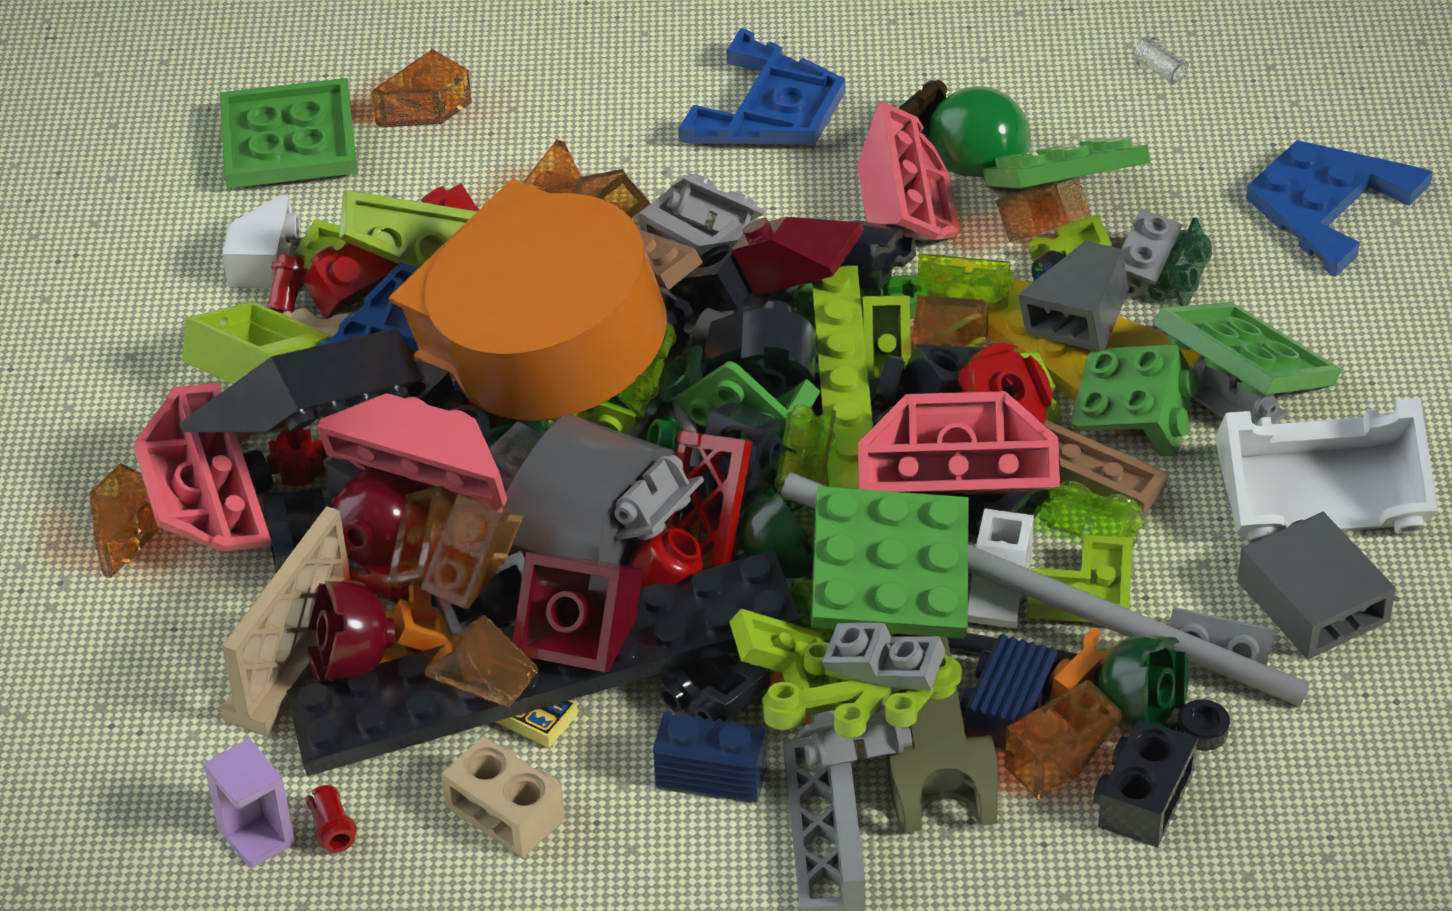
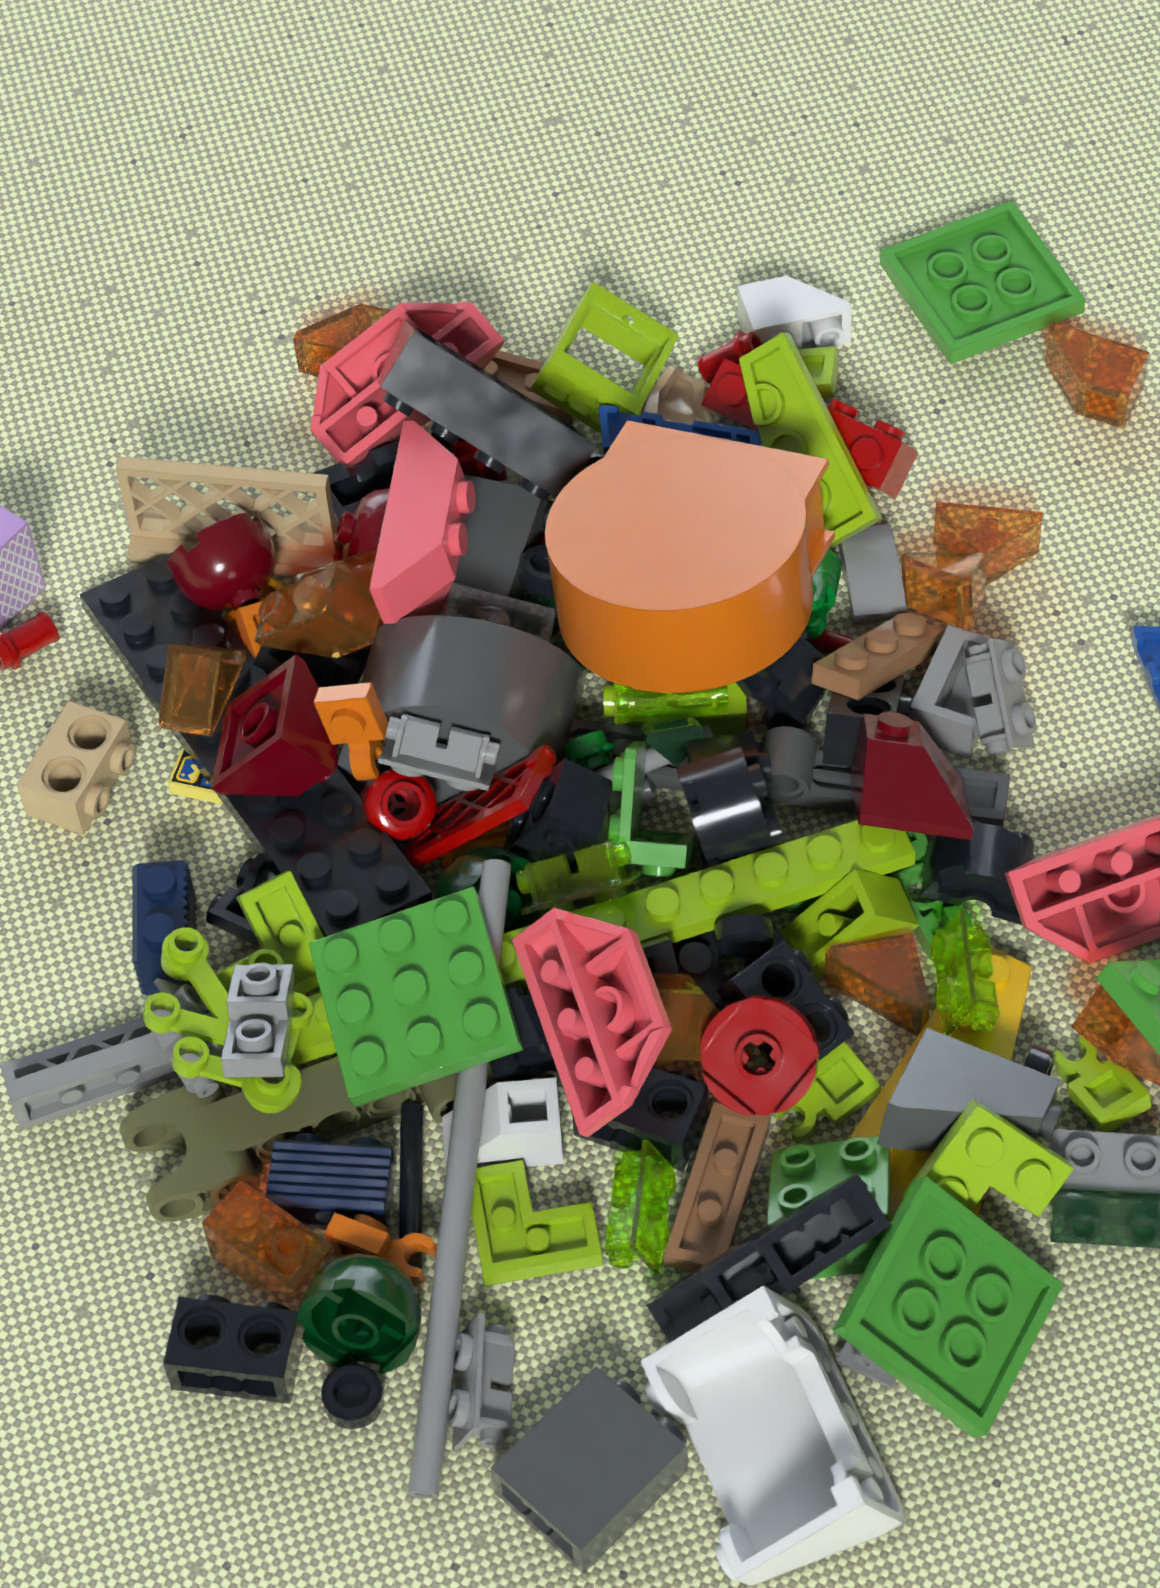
camera: 75 degrees right, 10 degrees up
(610, 532) = (357, 718): none -> orange plate
(1141, 289) = (993, 1152): none -> lime plate
(1184, 424) = (775, 1256): none -> black slope

